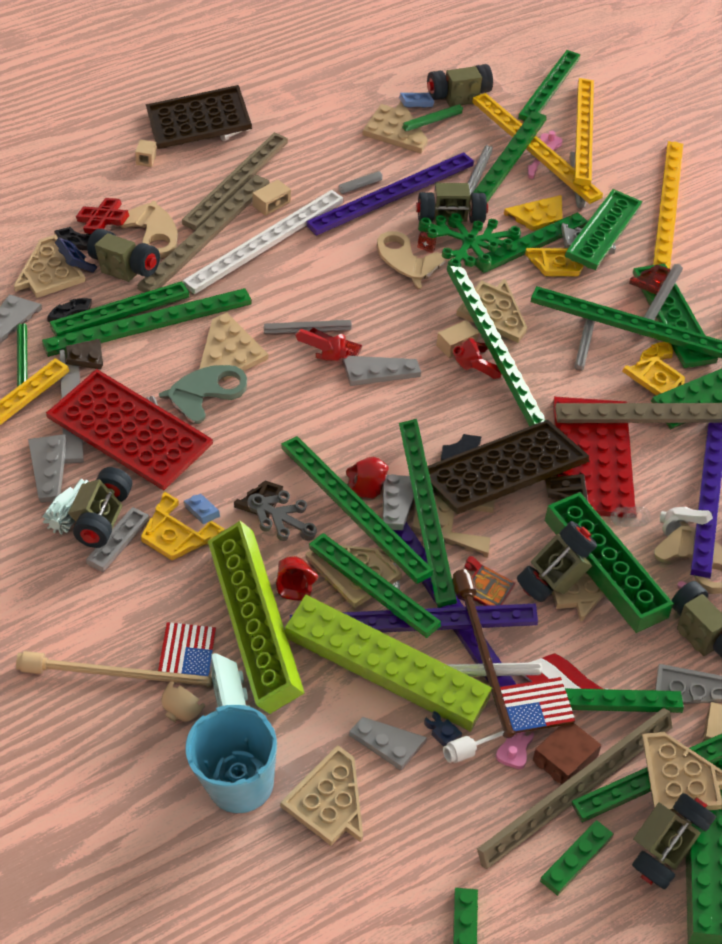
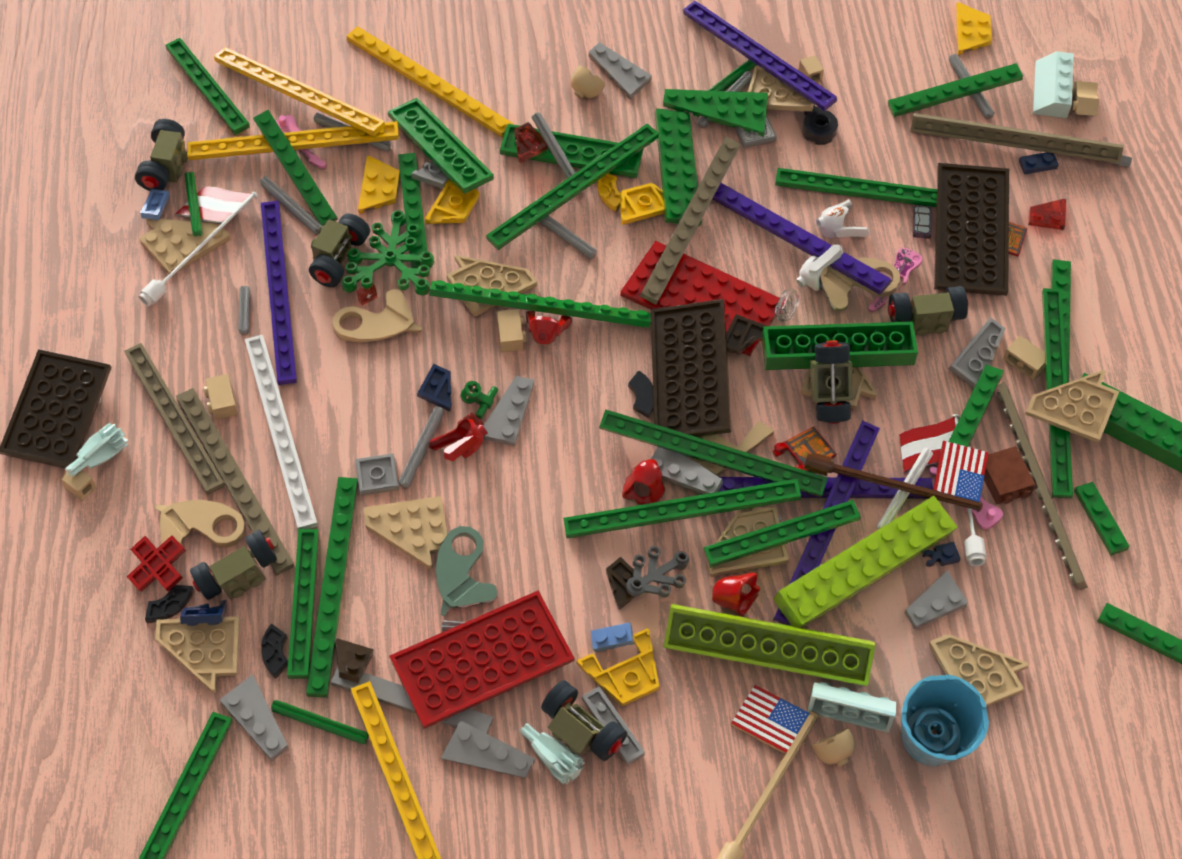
camera: 60 degrees left, 10 degrees up
(177, 148) = (98, 449): none -> light aqua piece
(264, 310) = (377, 474): none -> light grey tile
(369, 315) = (437, 387): none -> dark blue wing
(377, 341) = (477, 396): none -> green piece
(442, 131) = (214, 206): none -> flag
(670, 838) = (1125, 444): brick -> none

